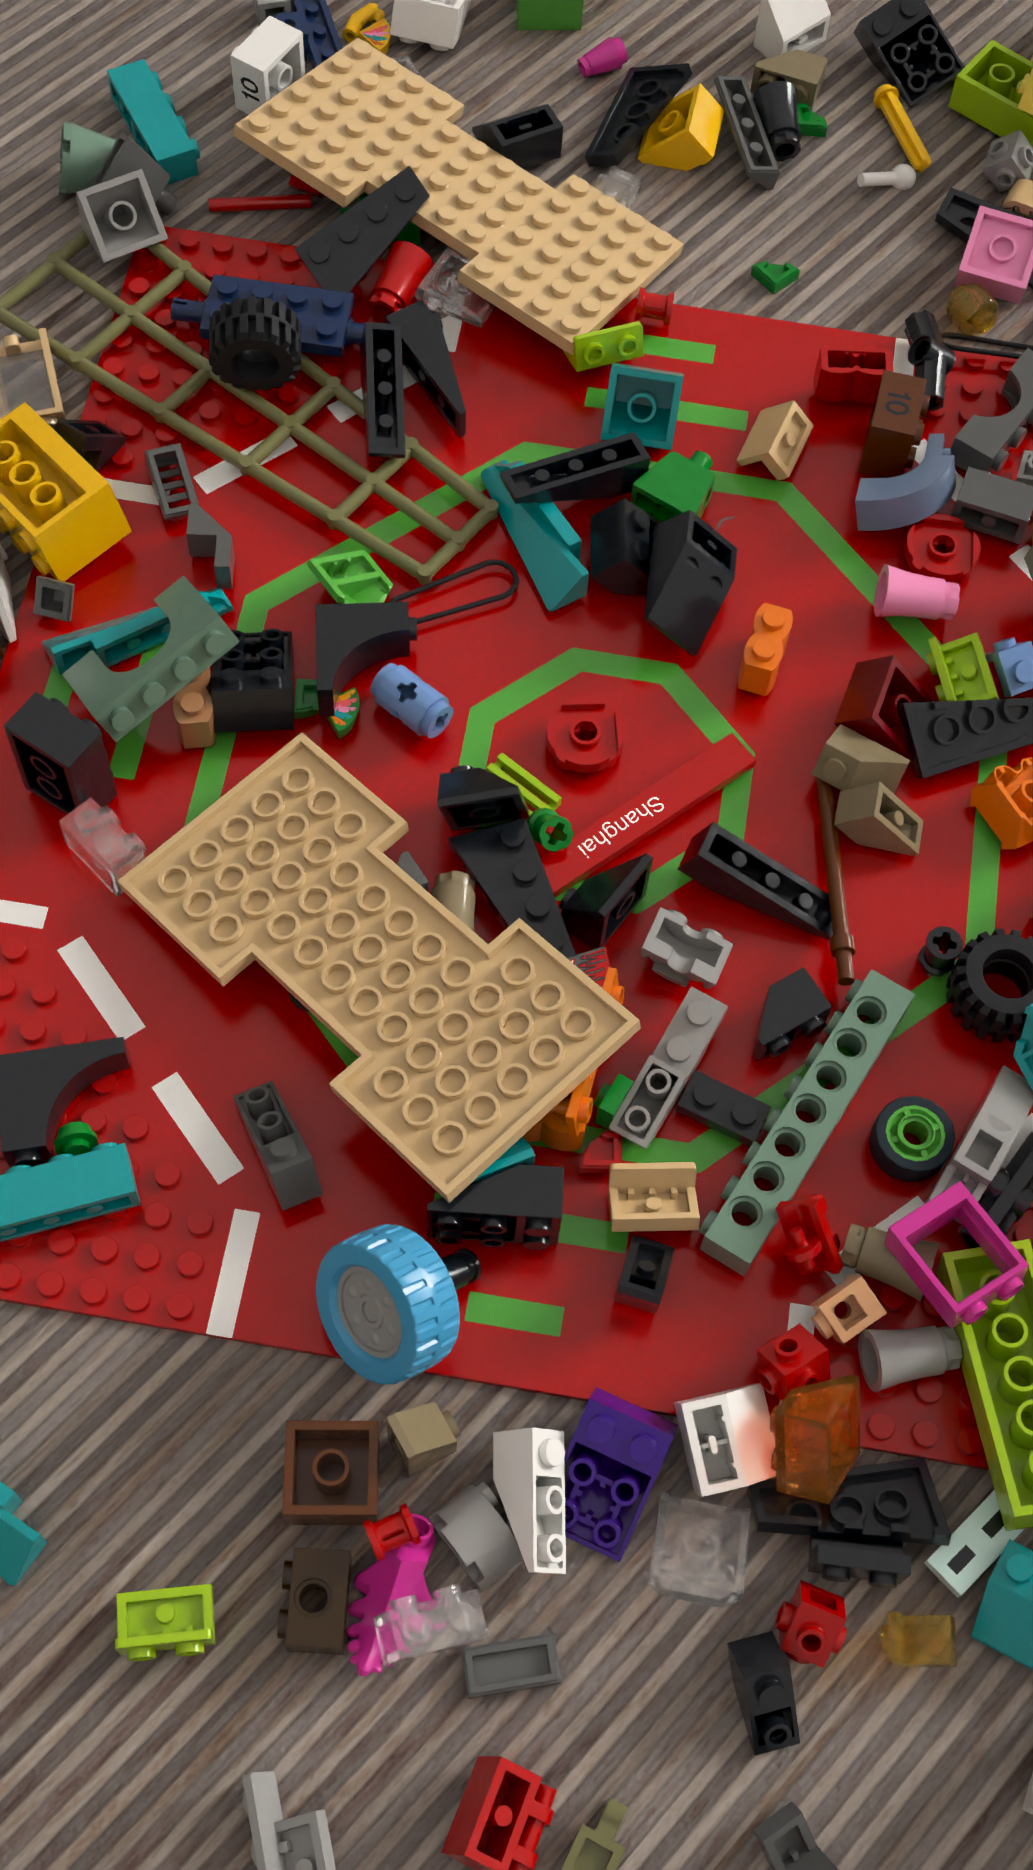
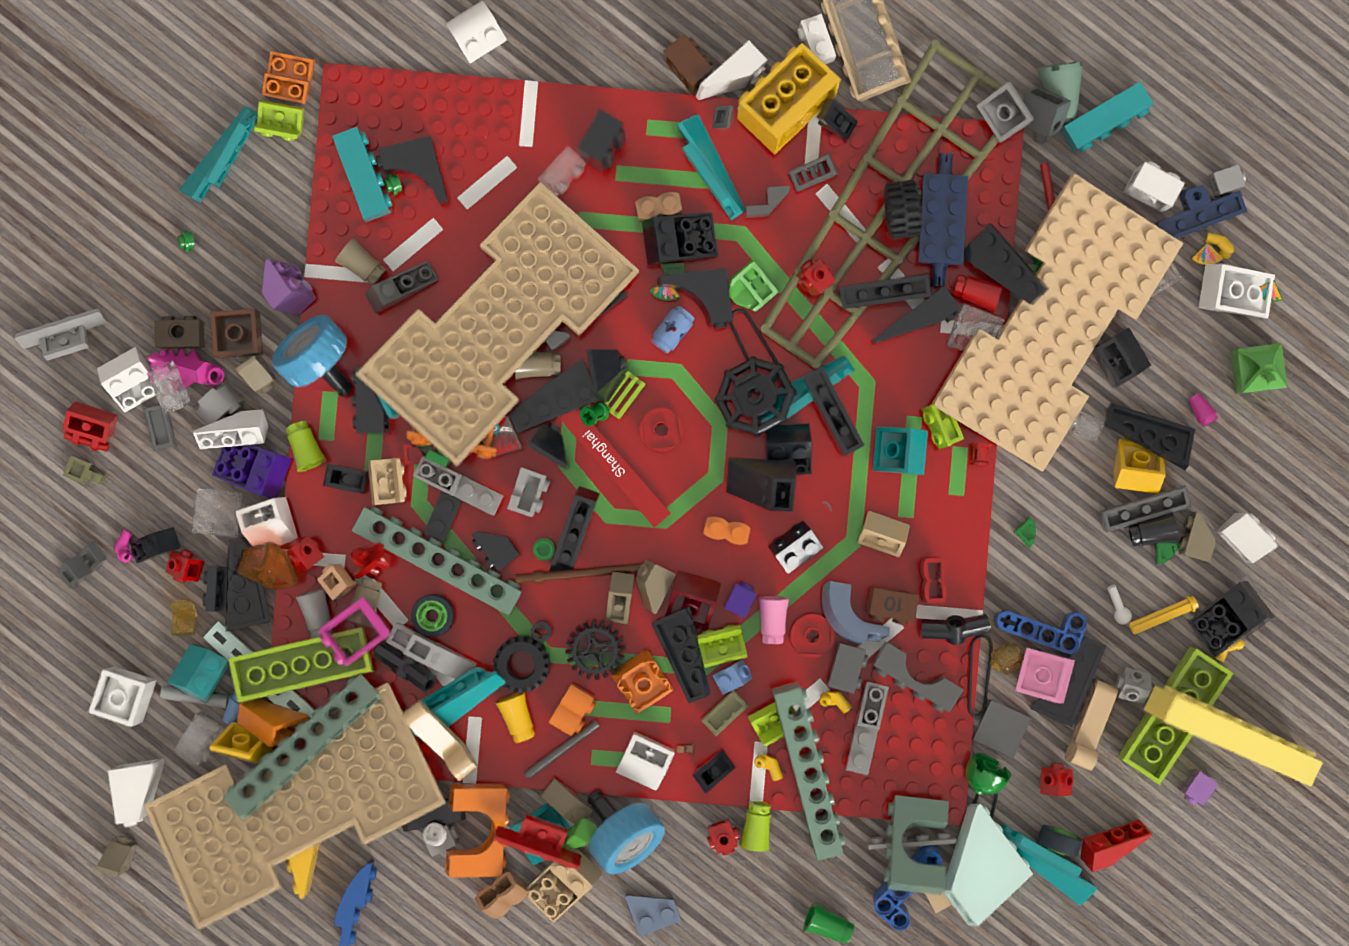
camera: 85 degrees right, 25 degrees up
(123, 1571) = (186, 240): none -> green plate
(127, 698) = (679, 204): sand green arch -> none
(165, 1621) = (164, 264): lime bracket -> none
(219, 1211) = (360, 262): none -> dark tan plant
(255, 1359) = (286, 288): none -> medium lavender slope
(348, 478) = (815, 276): none -> red brick
(392, 1532) = (206, 364): red bush -> none
(403, 1721) = (127, 379): none -> white slope
(558, 592) = (753, 408): none -> black plate
(576, 1350) = (304, 446): none -> lime plant
(675, 486) = (837, 475): green torso -> none
(766, 1771) = (122, 547): none -> dark pink arm
(789, 939) = (544, 549): none -> green plate
(792, 559) = (795, 546): none -> bracket
(884, 626) = (740, 598): none -> dark purple brick
(937, 238) = (1038, 628): none -> blue beam
(967, 879) = (608, 644): none -> black gear

